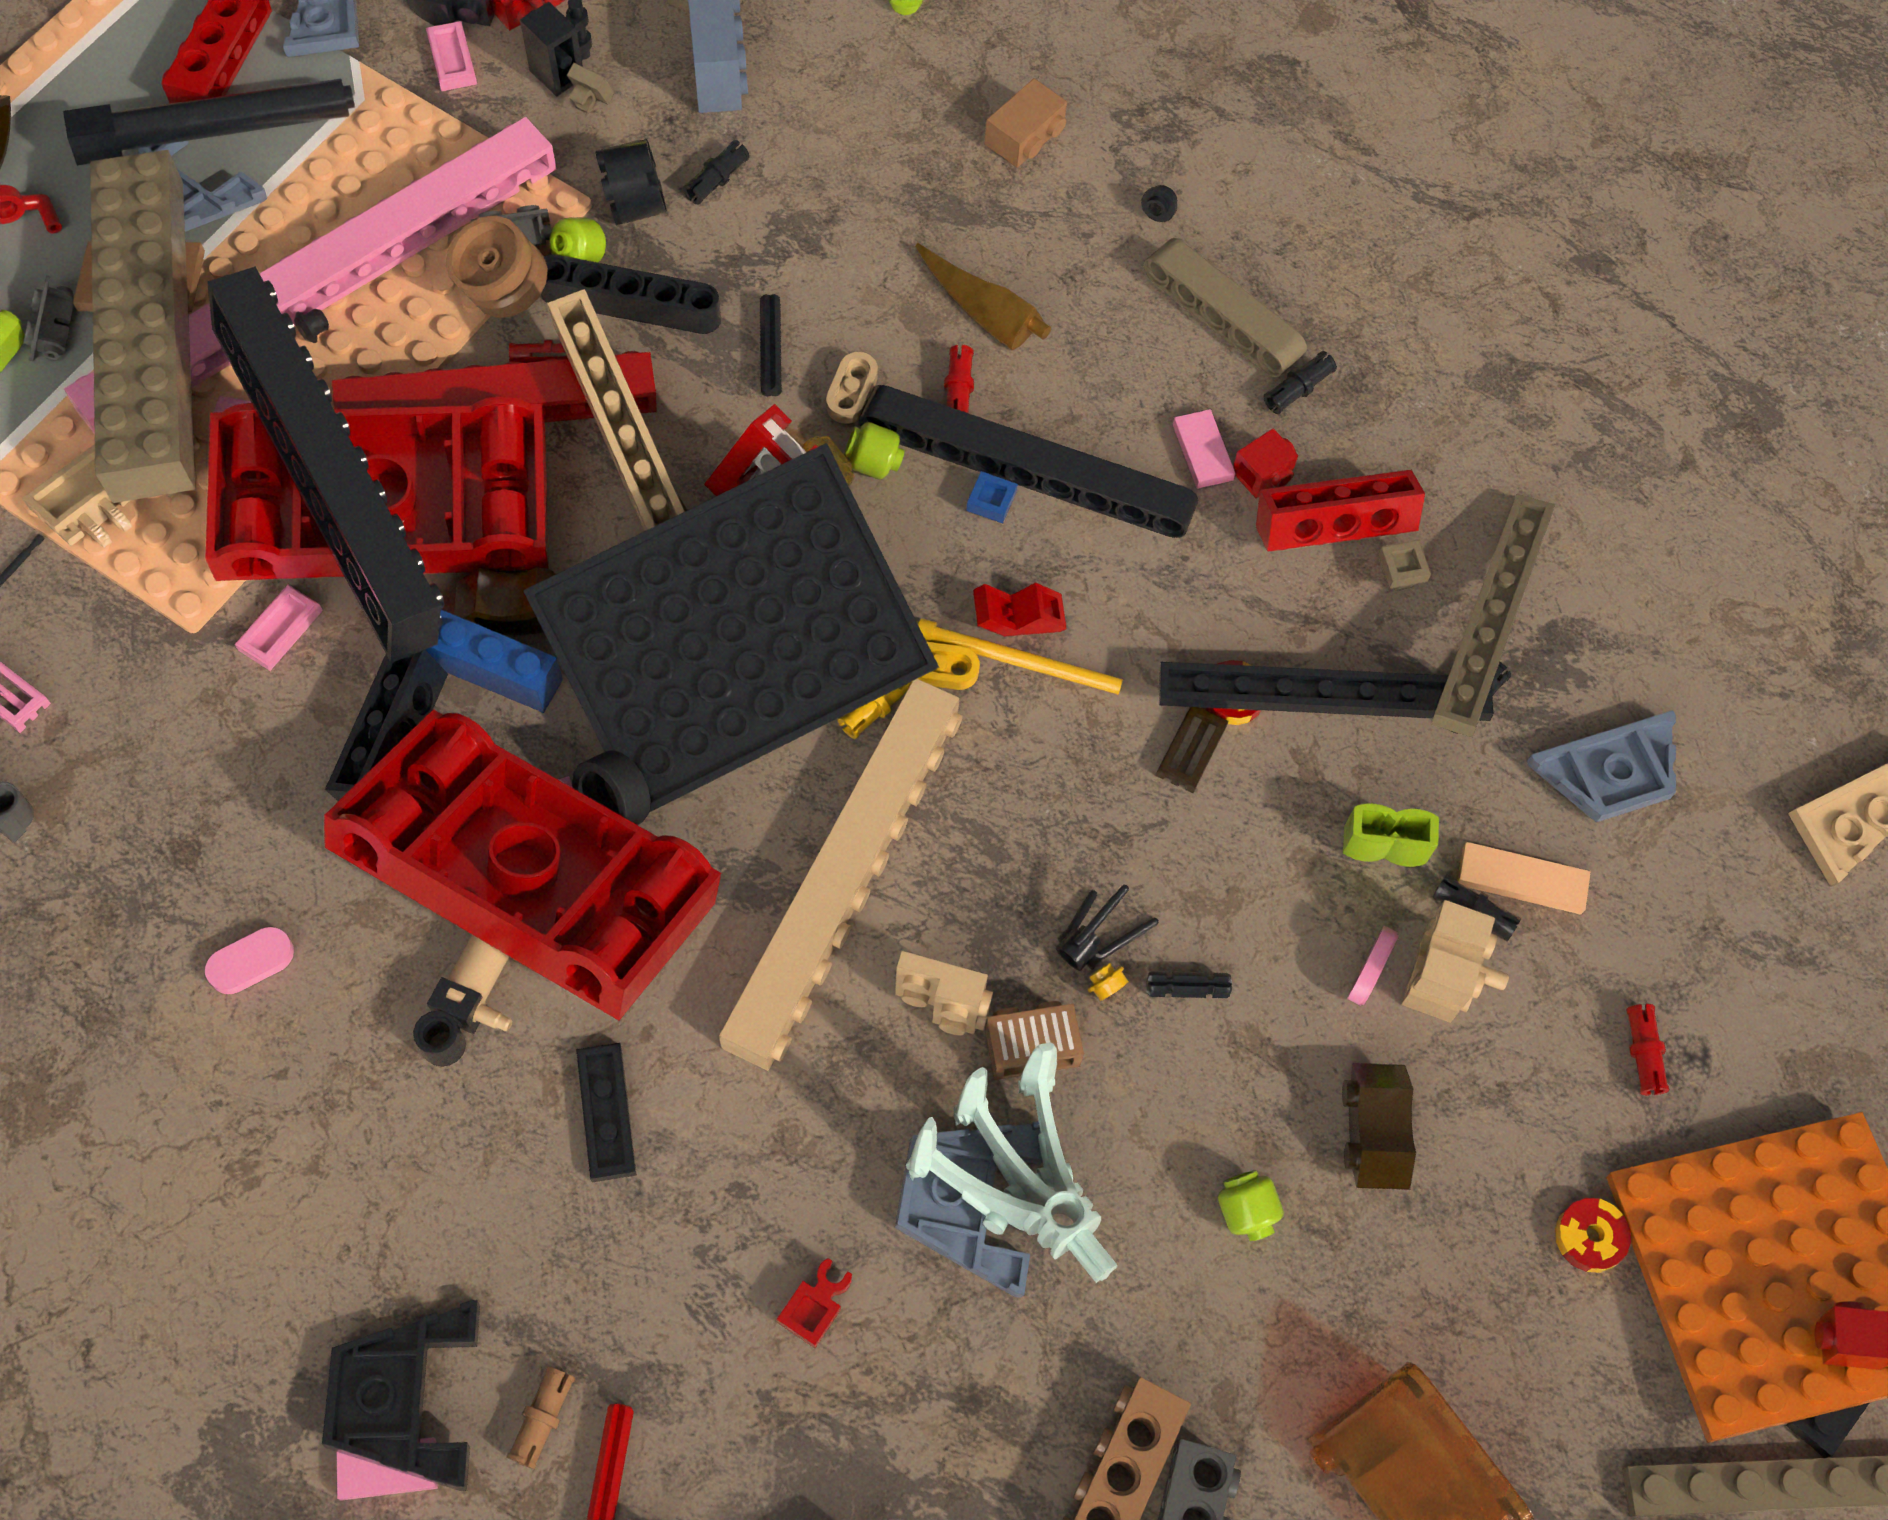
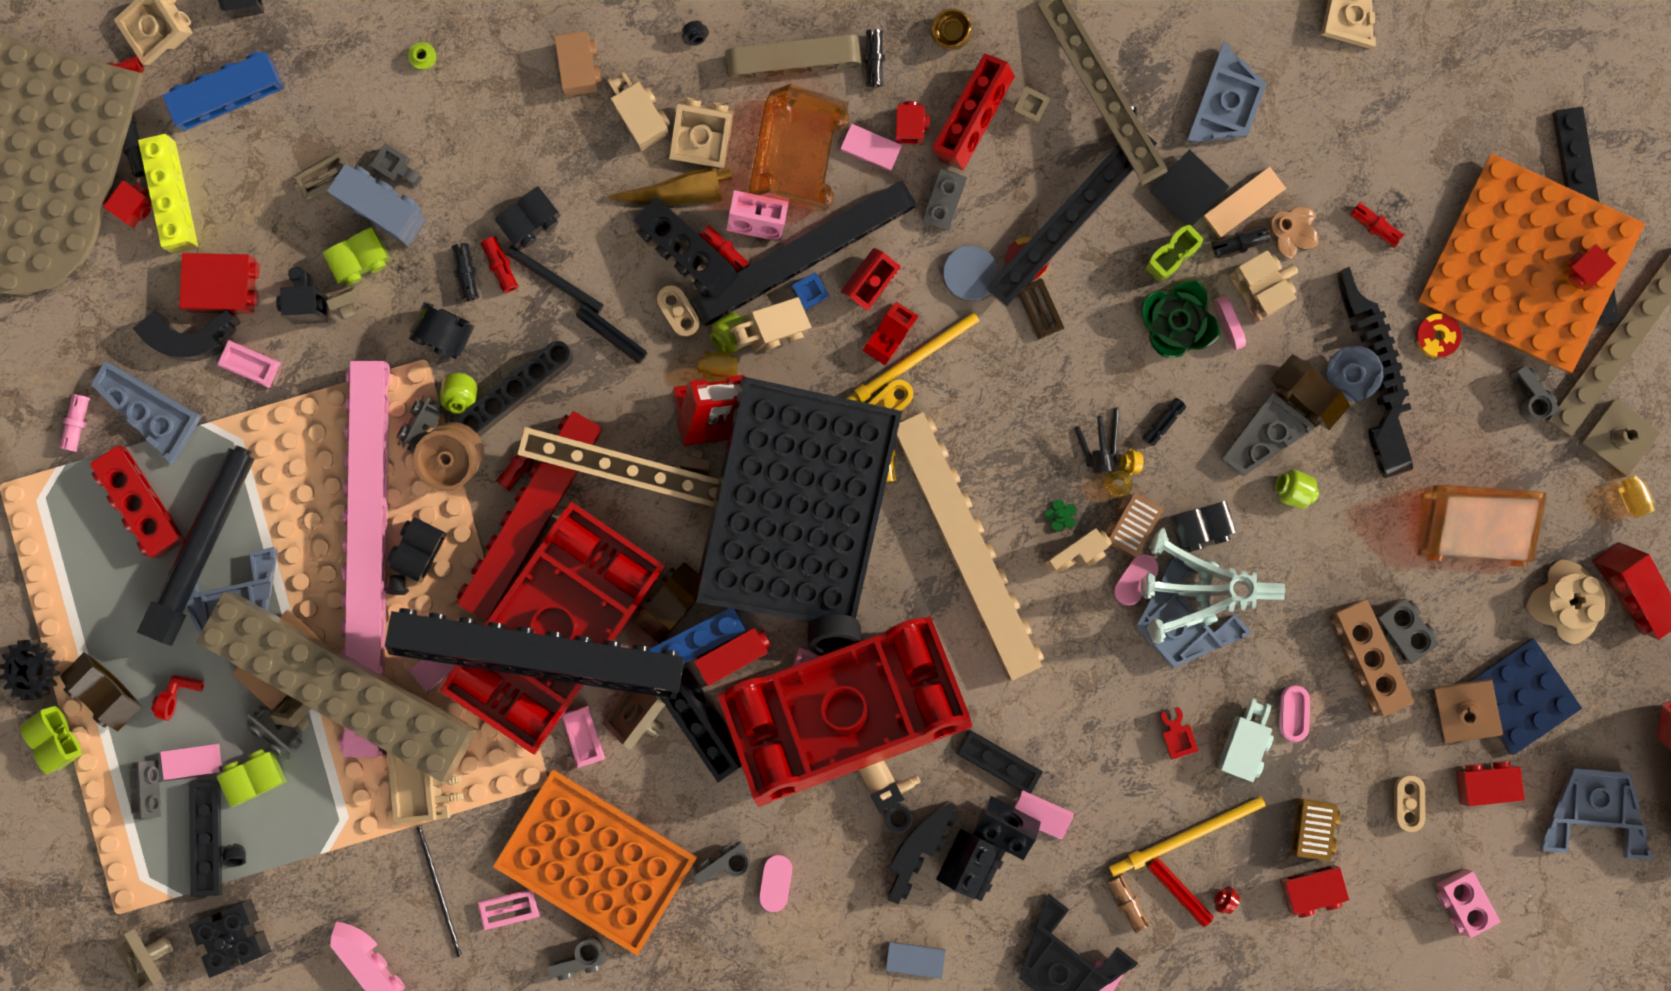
camera: 50 degrees left, 20 degrees up
(80, 322) = (291, 714): none -> dark tan tile
(128, 742) = (595, 862): none -> orange plate
(229, 877) = (710, 868): none -> dark grey plate
(266, 1201) = (915, 959): none -> sand blue tile
(342, 652) = (633, 717): none -> dark tan tile
(367, 314) = (416, 550): none -> black brick
(432, 1086) = (924, 838): none -> black slope
(438, 1165) = (971, 865): none -> black brick
(498, 700) = (733, 656): none -> red brick
(524, 1175) = (1007, 828): none -> black brick
(576, 1212) = (1052, 817): none -> bright pink tile
(610, 1384) = (1137, 859): none -> yellow bar
(646, 68) = (357, 256): none -> lime brick
(752, 196) = (499, 264): none -> red pin
(771, 40) = (394, 164): none -> dark grey plate
(782, 257) = (554, 279): none -> black bar
(825, 185) = (527, 218): none -> black brick
(875, 1404) = (1247, 743): none -> light aqua brick
(916, 476) = (773, 325): none -> tan brick
(924, 338) = (658, 217): none -> black brick
(946, 1092) = (1128, 587): none -> bright pink tile
(966, 1440) = (1294, 713): none -> bright pink tile
(974, 954) = (1061, 515): none -> green plant
(1024, 383) = (757, 216): none -> bright pink brick
(1028, 209) = (638, 111): none -> tan brick
(1060, 539) = (870, 279): none -> red brick
(1061, 978) = (1116, 490): none -> clear yellow plate
(1063, 276) = (701, 133): none -> tan plate
(1106, 1126) = (1203, 525): none -> black brick
(1136, 374) = (796, 146): none -> clear orange windscreen
(1159, 637) = (969, 272): none -> sand blue tile
(1223, 552) = (944, 199): none -> dark grey plate
(1281, 1116) = (1266, 434): none -> dark grey wing
(1313, 870) = (1190, 302): none -> dark green brick
(1404, 430) = (951, 29): none -> pearl gold hair
(1416, 1267) = (1388, 437): none -> black piece
(1454, 1161) = (1355, 372): none -> sand blue tile
(1480, 803) = (1189, 188): none -> black slope
(1547, 965) = (1298, 231): none -> medium nougat plate
(1645, 1400) = (1528, 383): none -> dark grey plate

